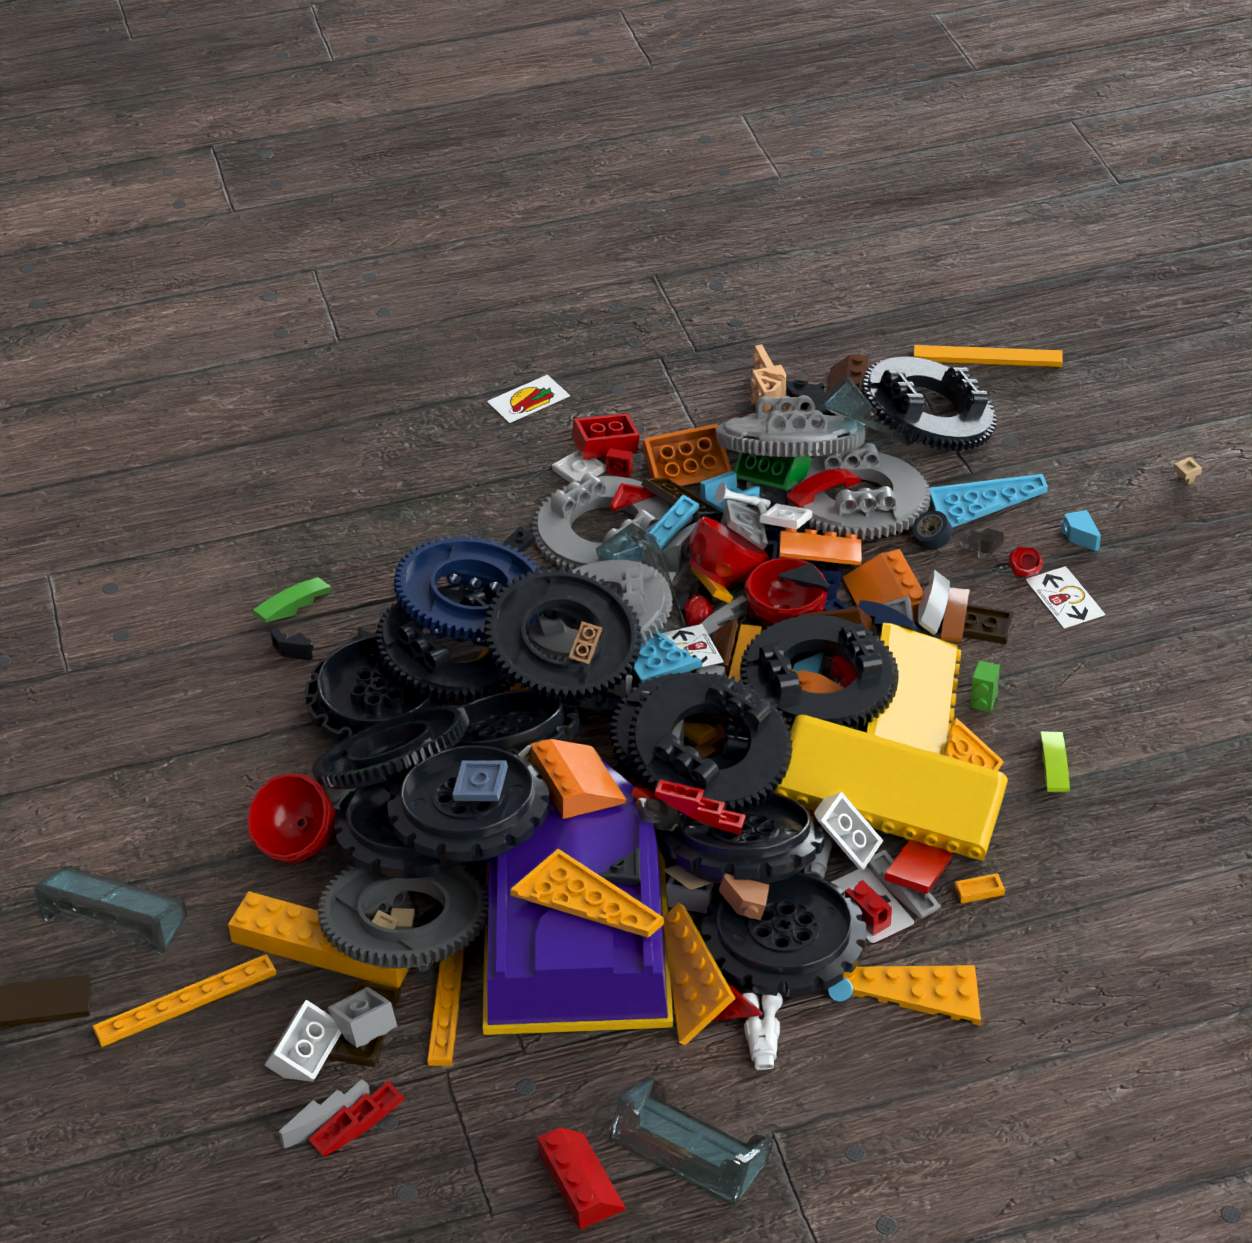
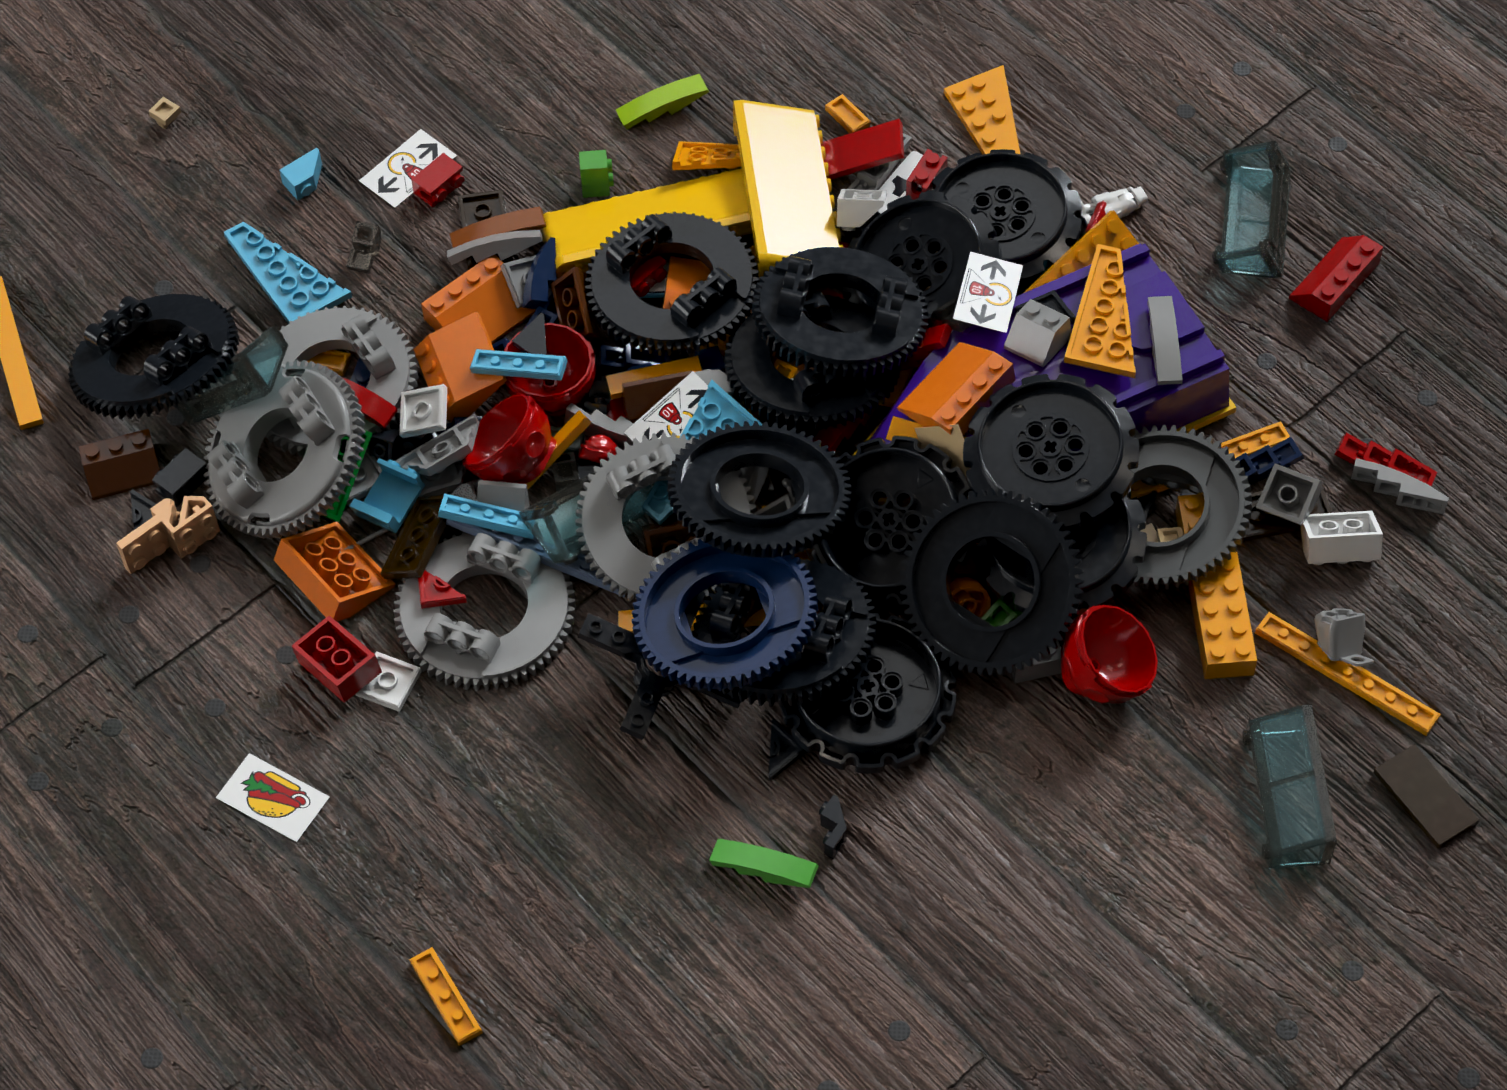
camera: 115 degrees left, 15 degrees up
(211, 995) = (1342, 635): none -> light grey piece
(322, 435) = (445, 996): none -> light orange tile
(417, 1021) = (1260, 463): none -> dark blue slope
(480, 781) = (1040, 428): sand blue plate -> none
(533, 926) = (1164, 340): none -> light grey slope
(585, 643) = (770, 459): medium nougat slope -> none
(597, 847) = (1038, 333): none -> light grey slope
(619, 462) = (371, 631): red piece -> none
(664, 833) = (988, 292): none -> white sticker
(692, 803) = (932, 283): red slope -> none
(724, 493) = (421, 472): white piece -> none
(745, 896) = (1005, 229): nougat slope -> none
(784, 559) = (518, 364): none -> medium azure tile
(932, 530) = (372, 285): black wheel -> none
(1025, 561) = (381, 203): red hair -> none
(1035, 602) = (437, 180): none -> red brick

